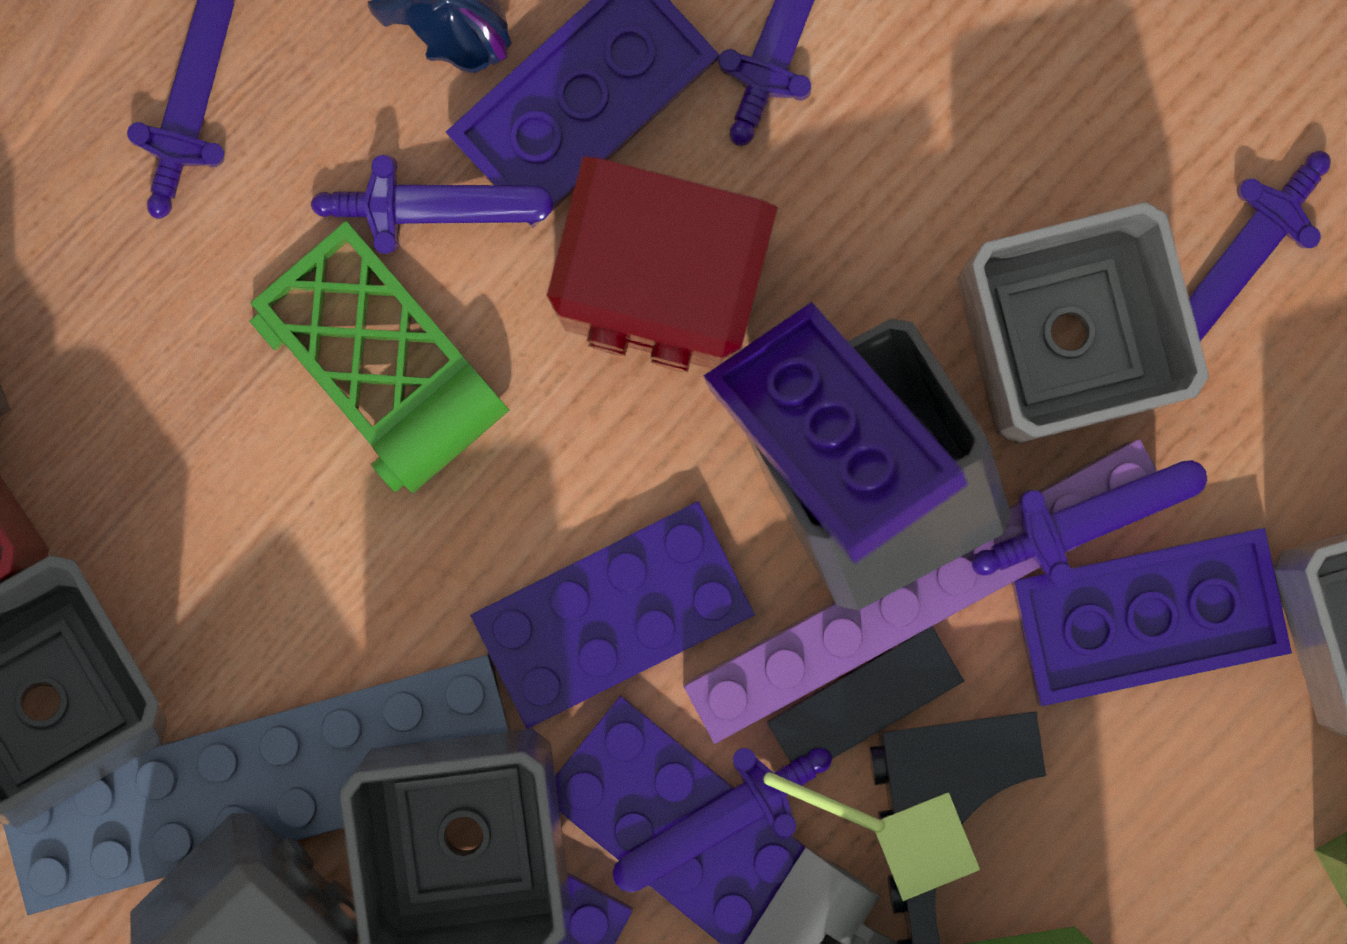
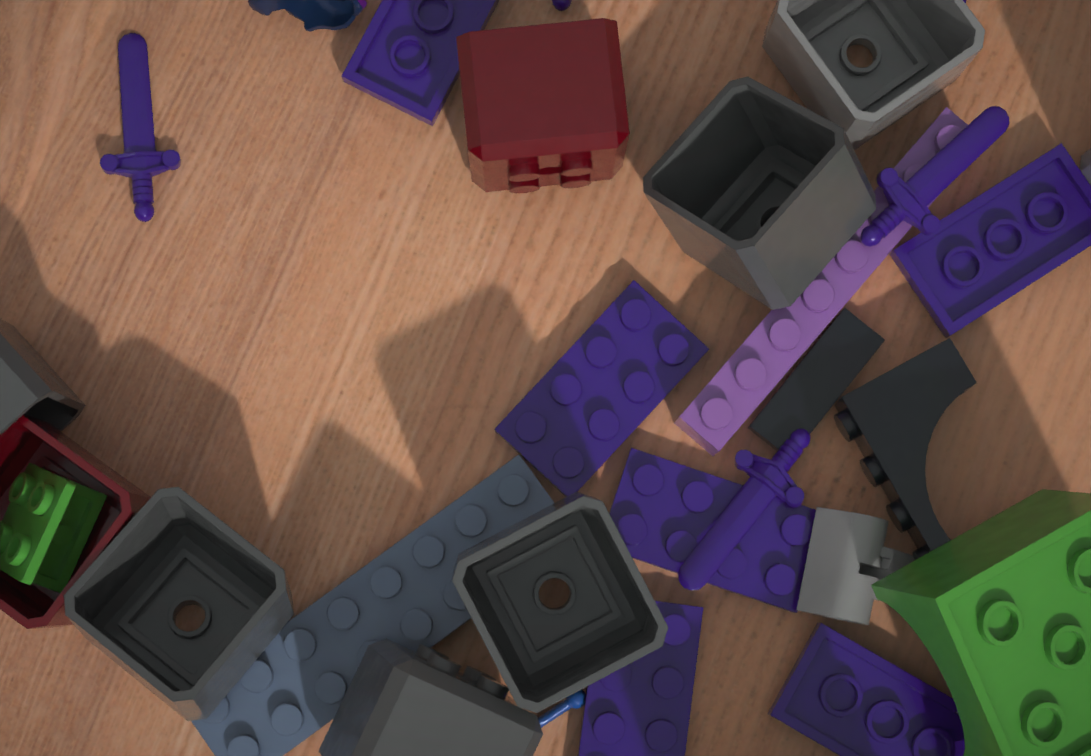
camera: 25 degrees left, 5 degrees down
(393, 204) = (319, 145): dark purple sword -> none
(433, 420) = (410, 296): bright green piece -> none
(835, 432) = (726, 168): dark purple plate -> none
(920, 843) = (904, 468): yellowish green piece -> none

